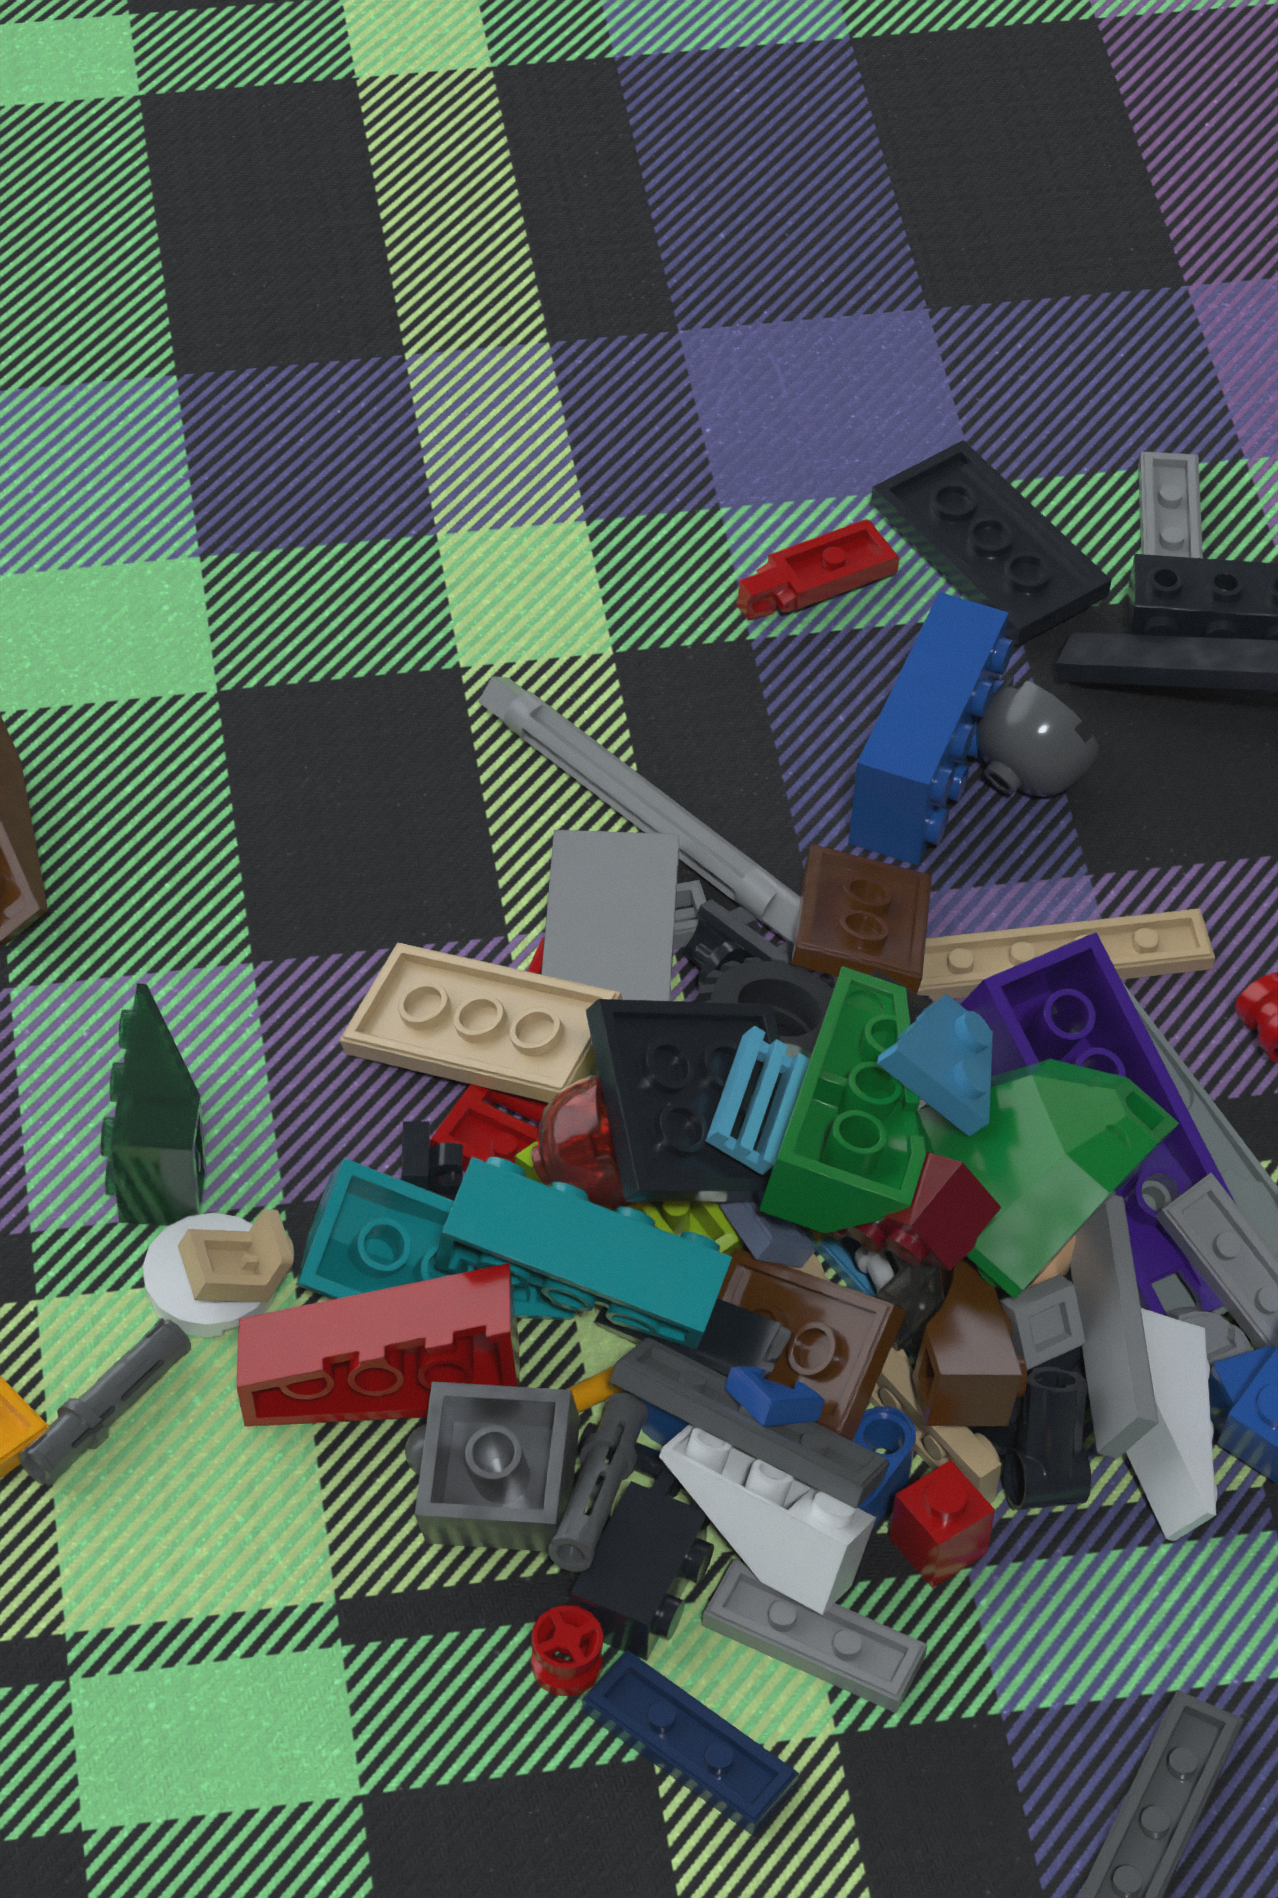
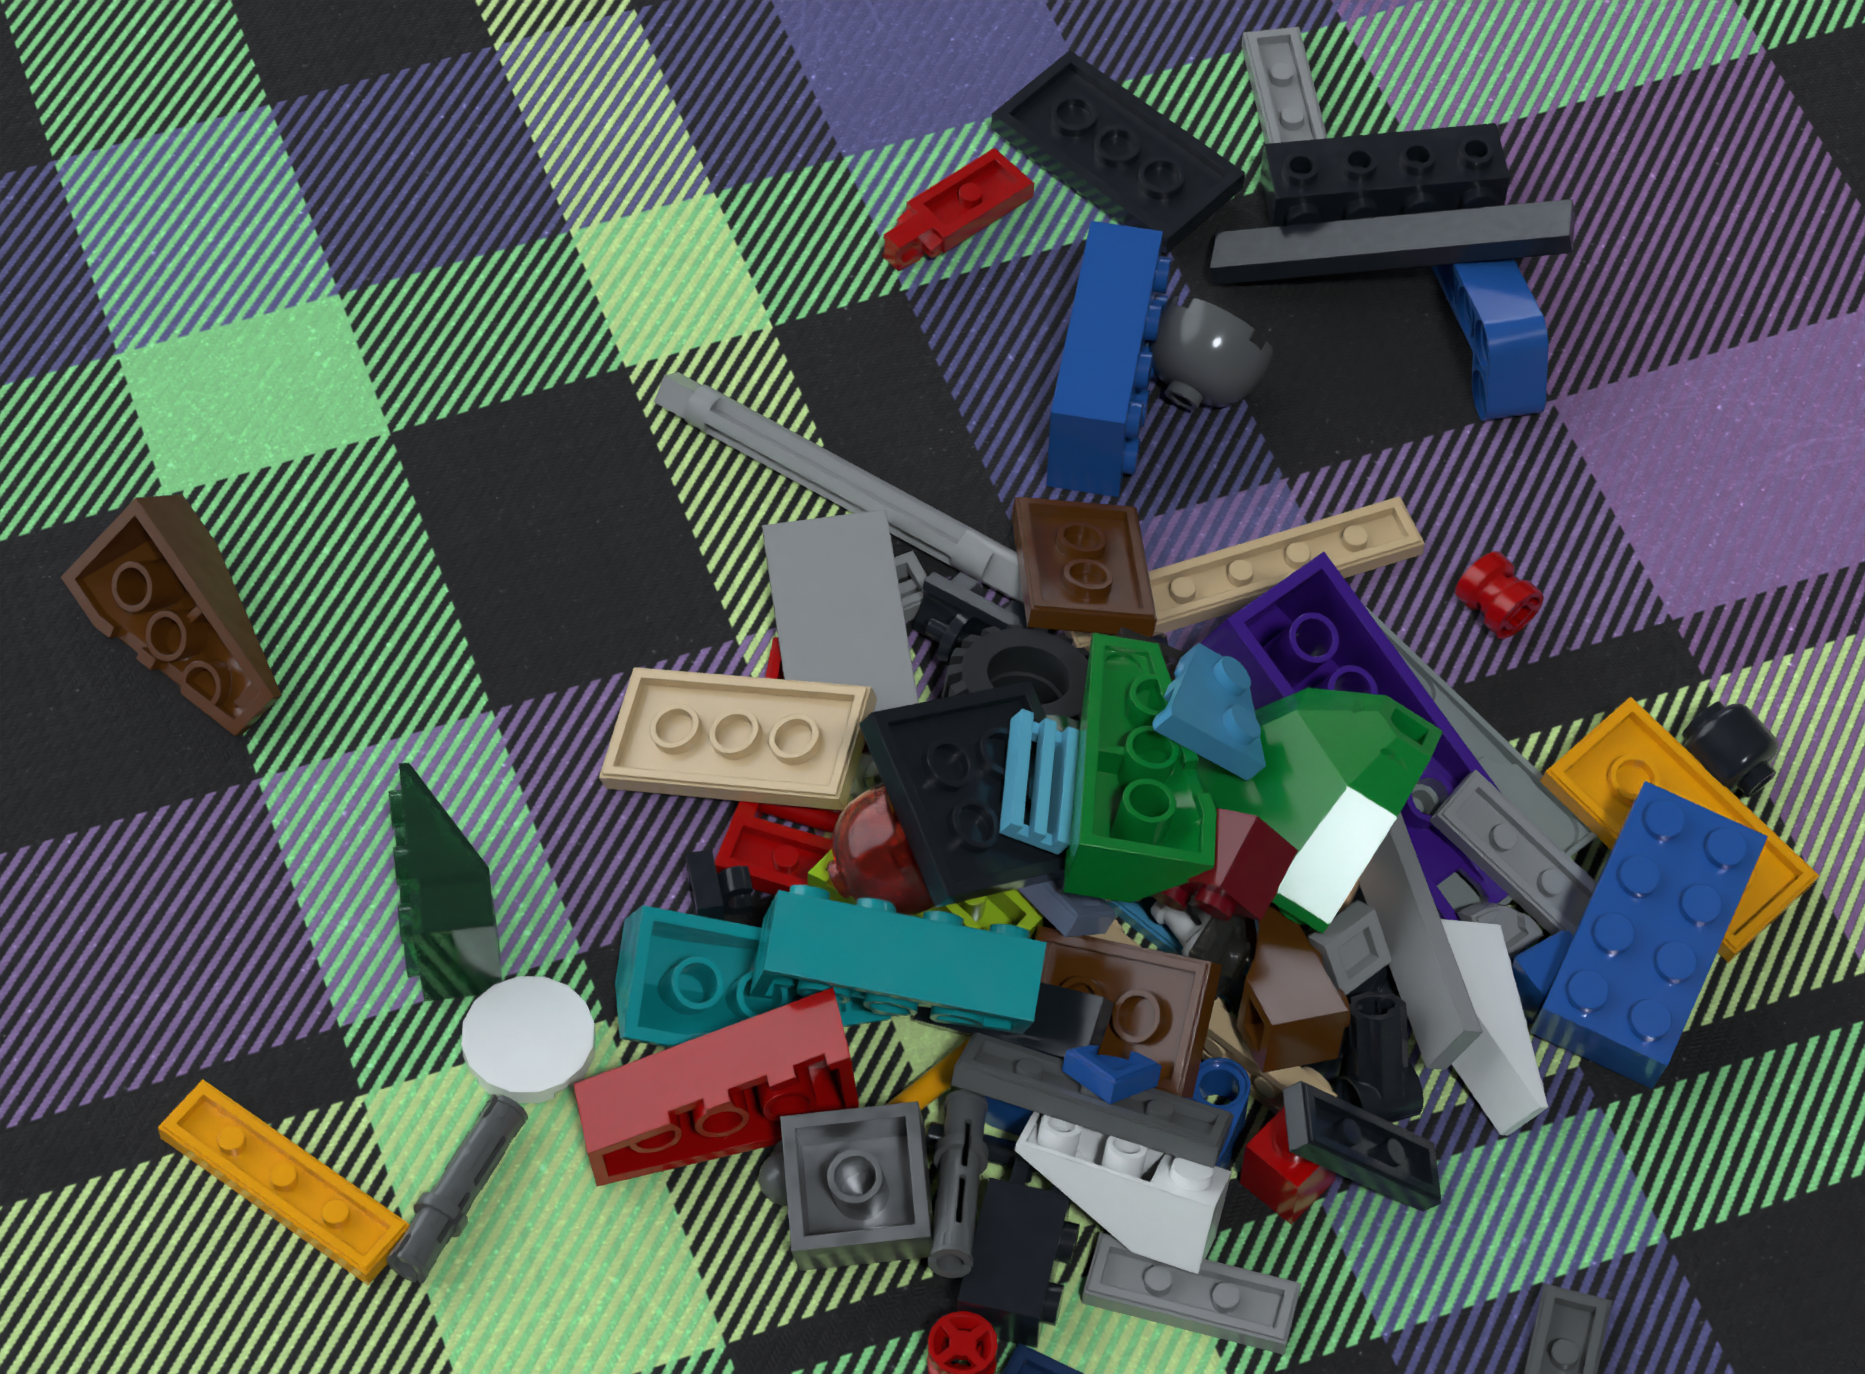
camera: 10 degrees left, 5 degrees up
(238, 1263) = (558, 1025): tan bracket -> none
(1013, 1516) = (1361, 1146): none -> black tile

